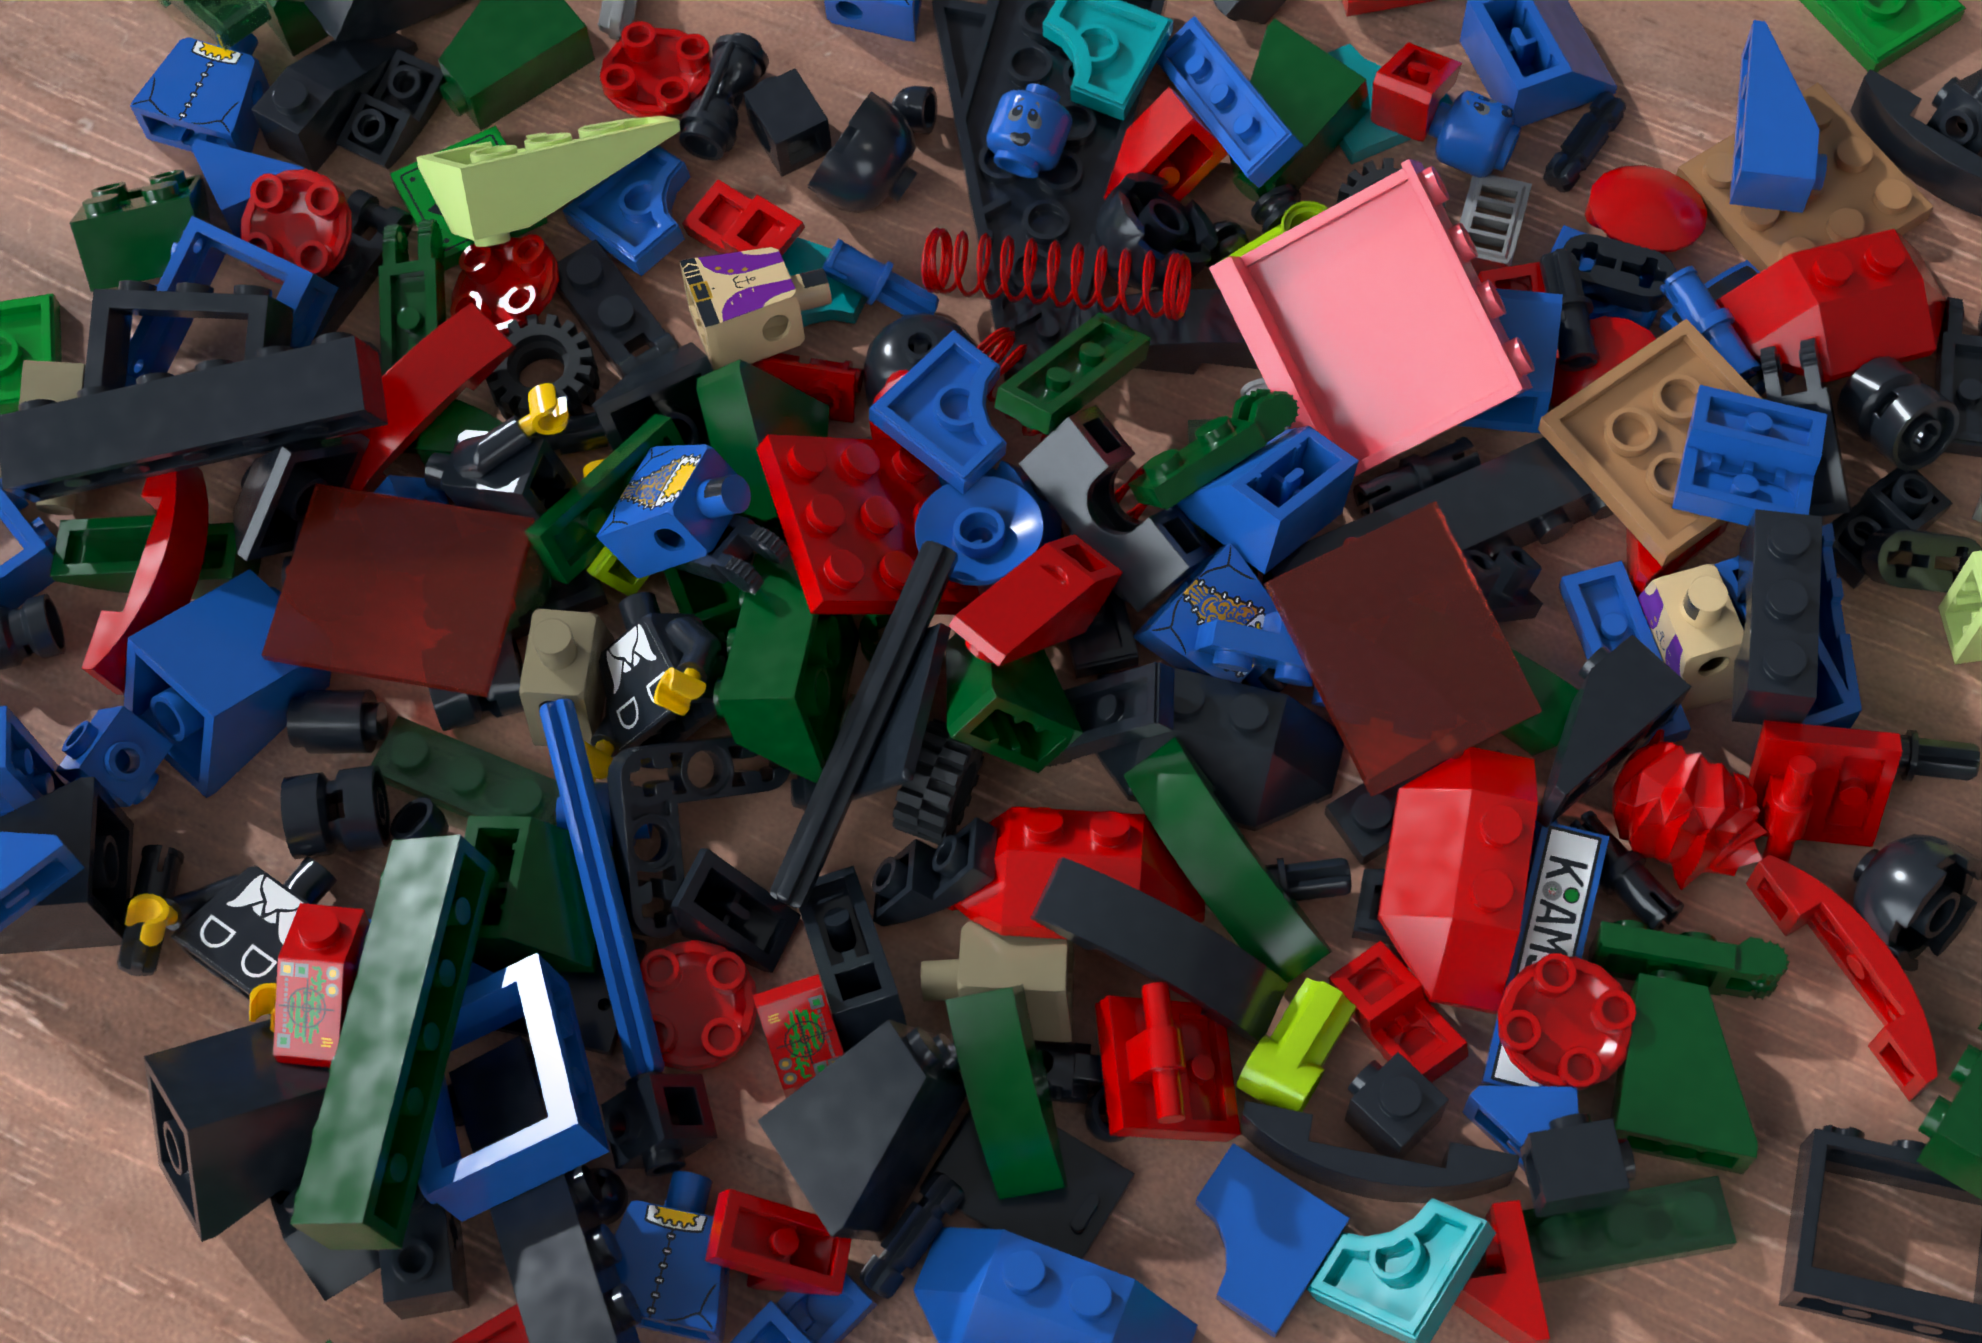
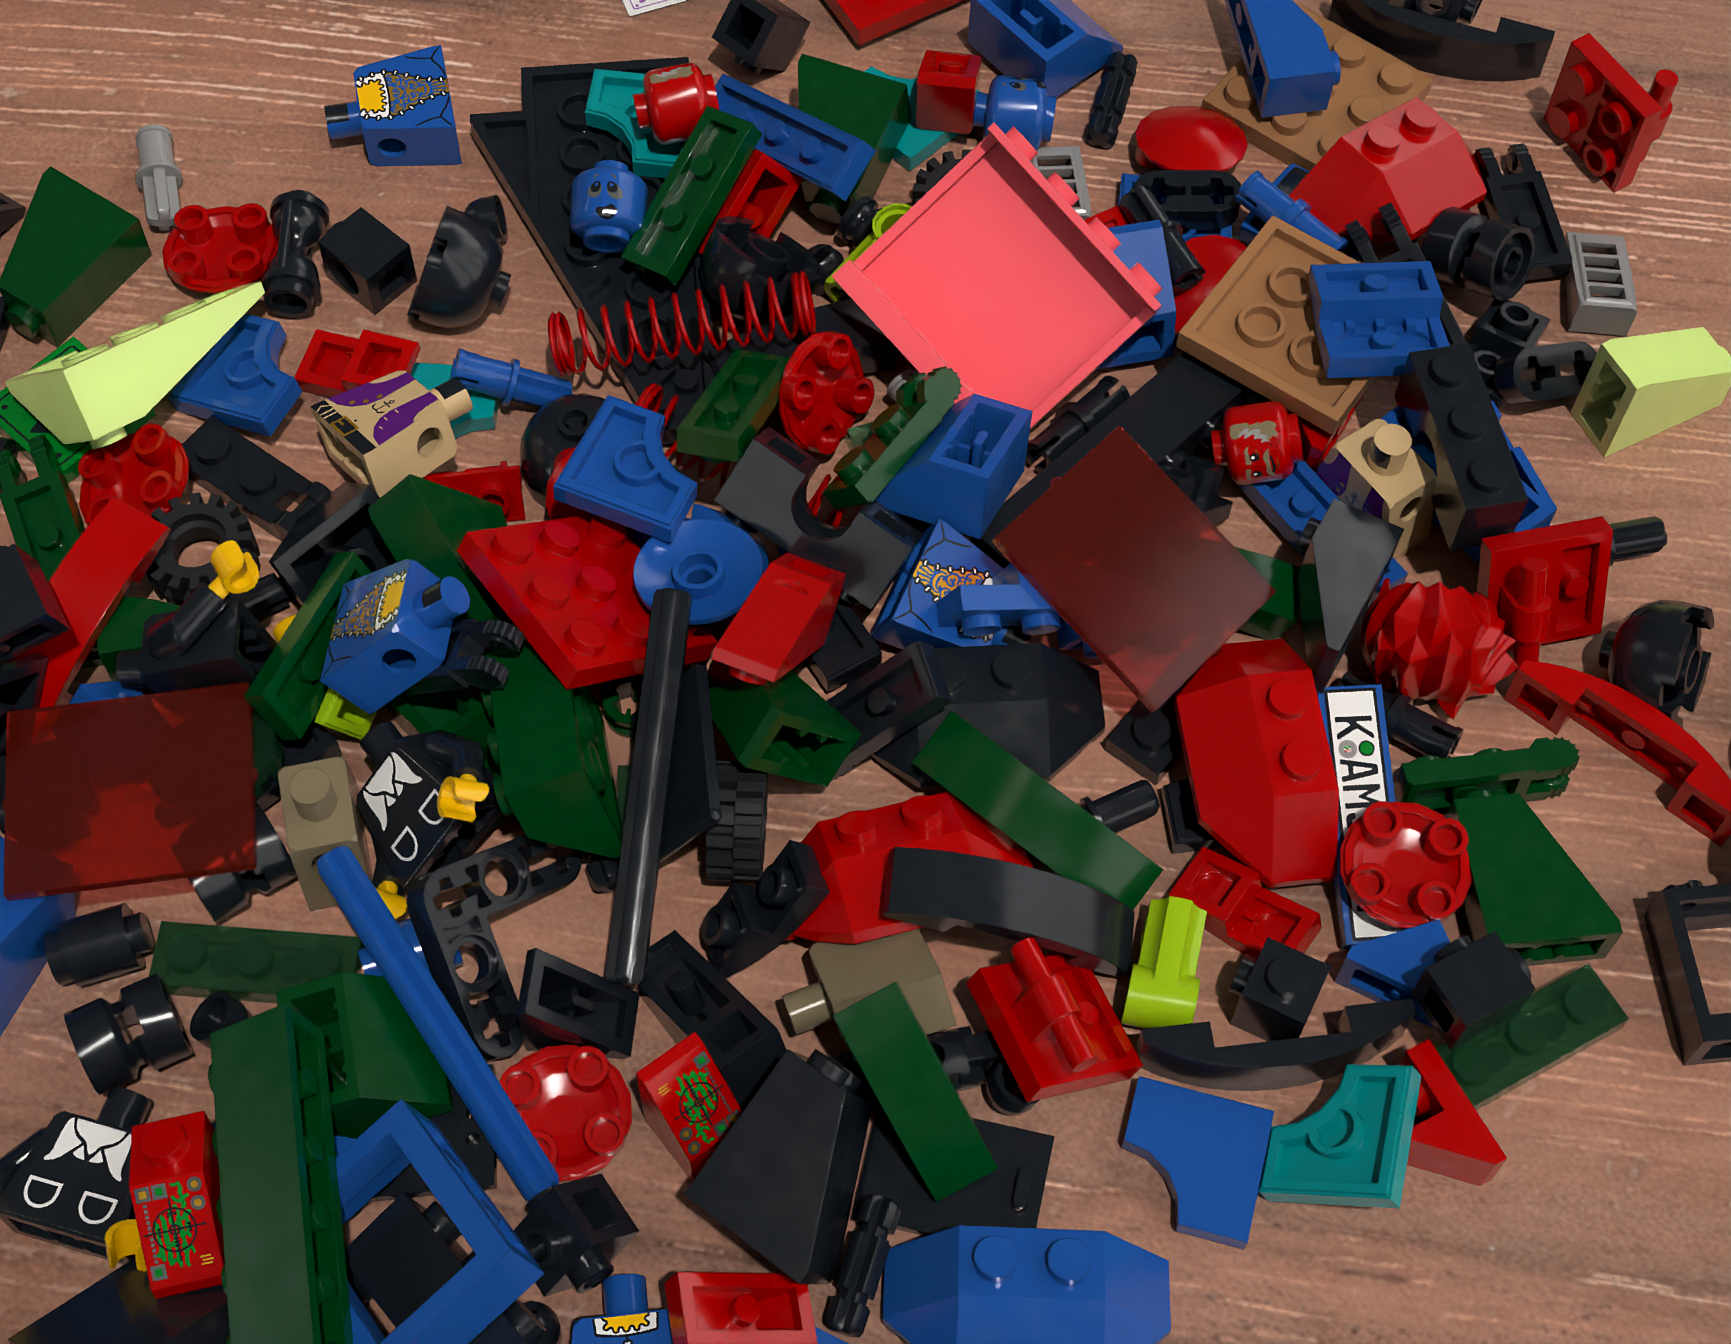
camera: 25 degrees left, 5 degrees down
(1111, 141) = (691, 195): none -> dark green plate
(1128, 43) = (674, 101): none -> red head
(1171, 378) = (823, 391): none -> red dish
(1585, 552) = (1258, 442): none -> red head

